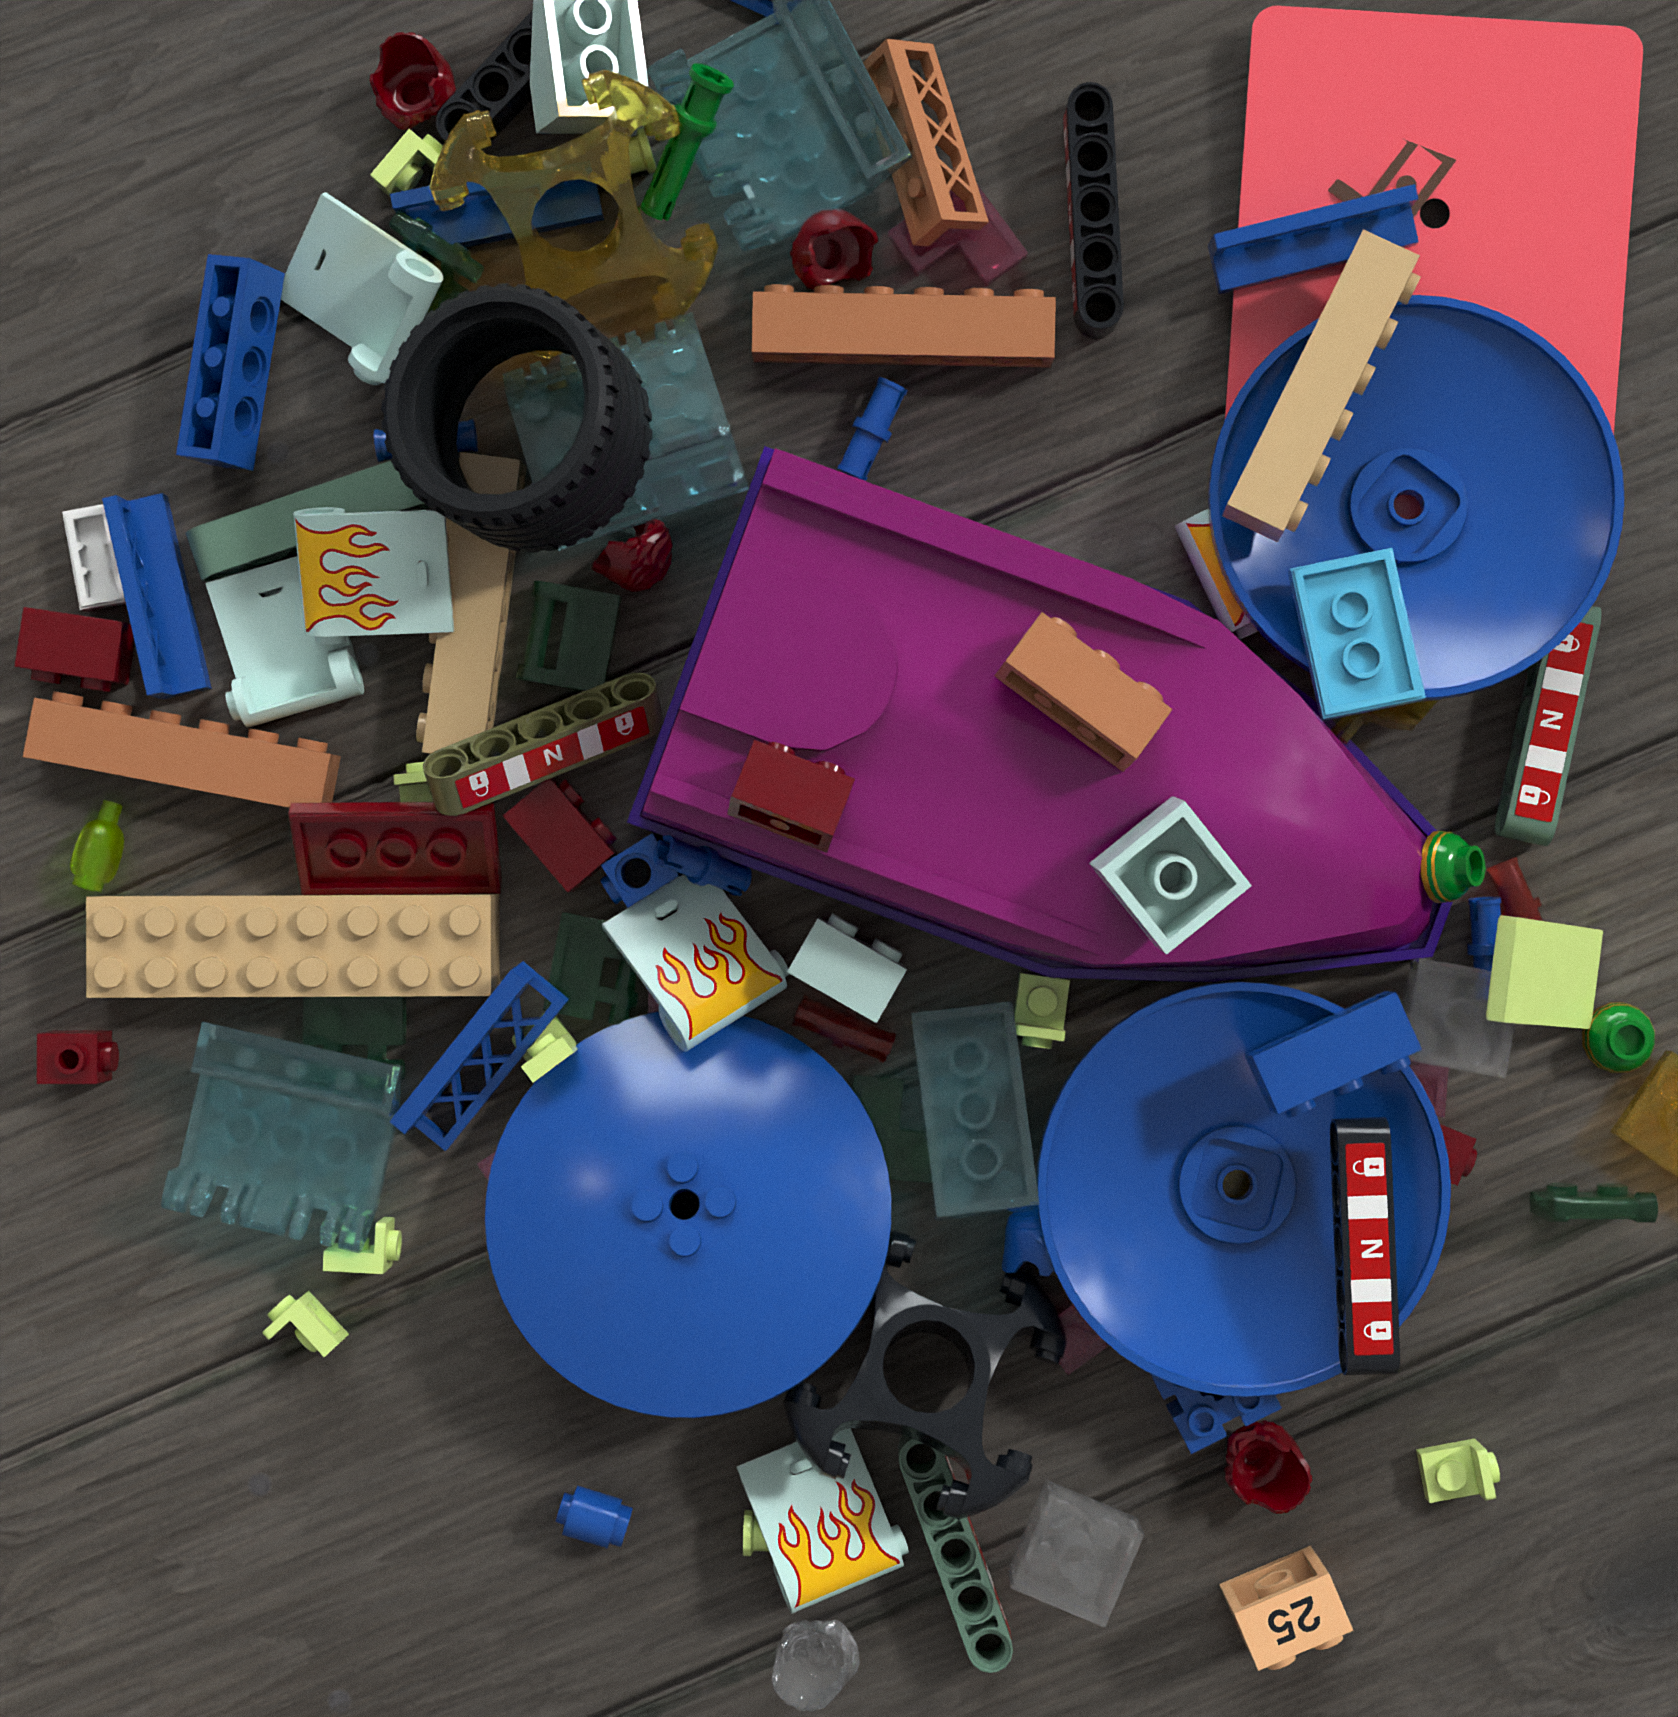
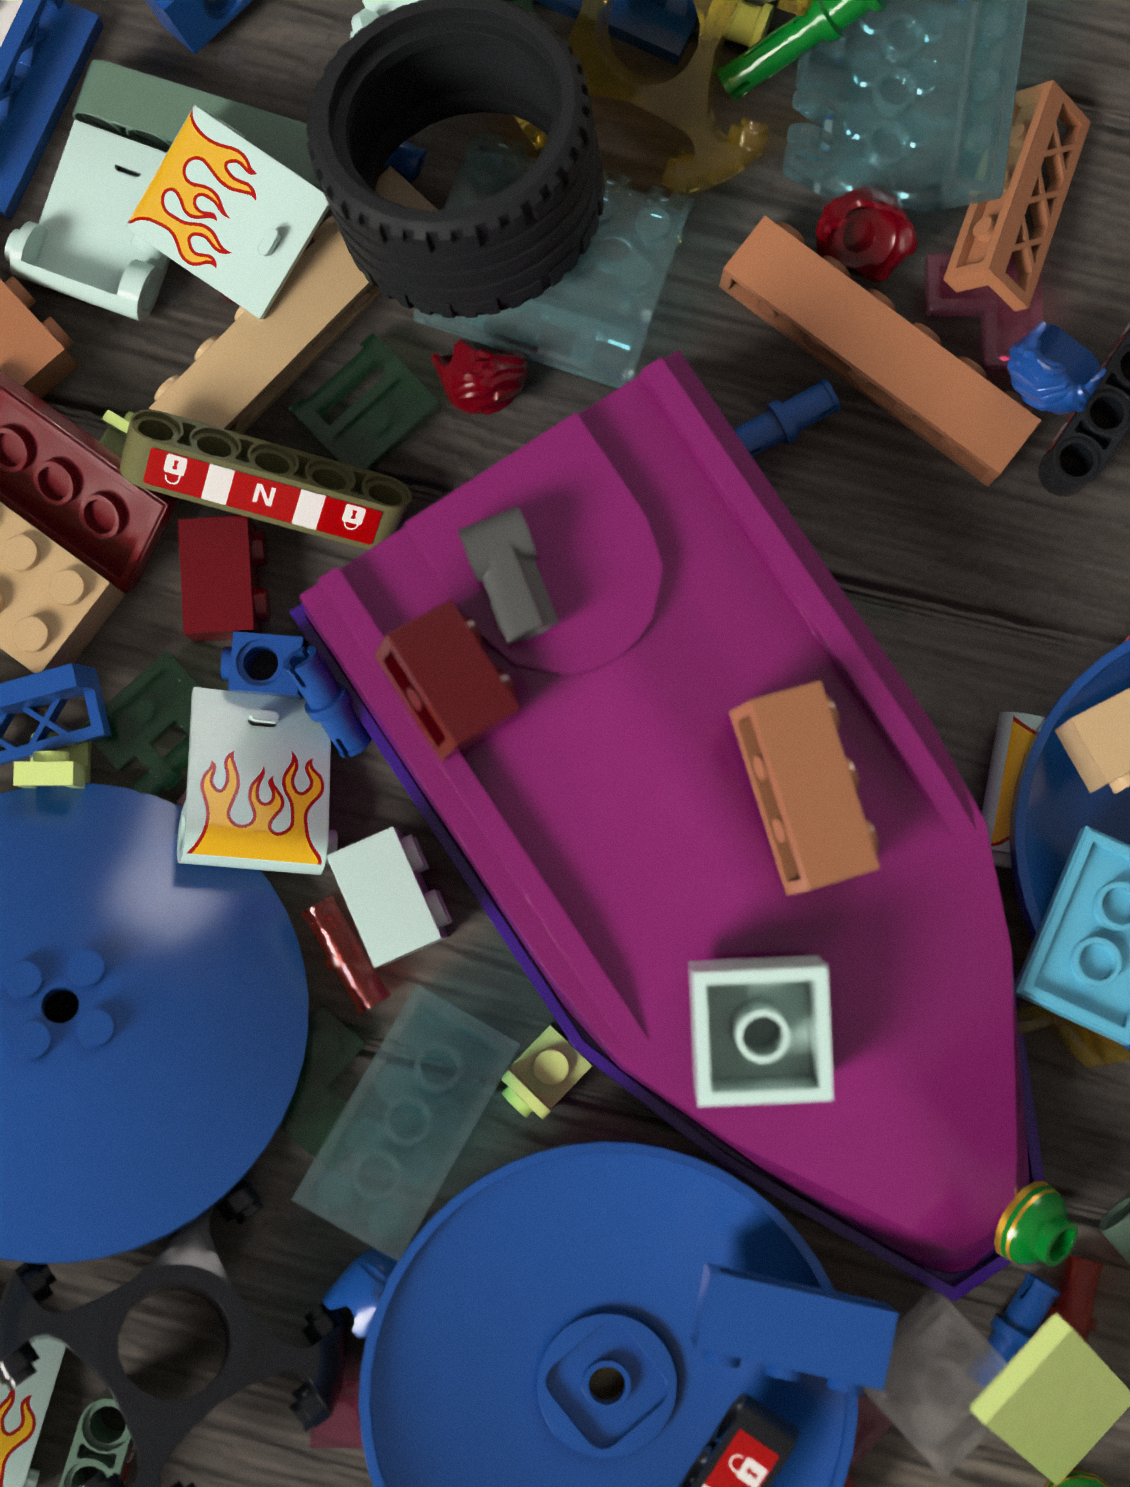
camera: 40 degrees right, 5 degrees down
(770, 687) = (505, 562): none -> dark grey piece
(1039, 254) = (1053, 370): none -> blue hair

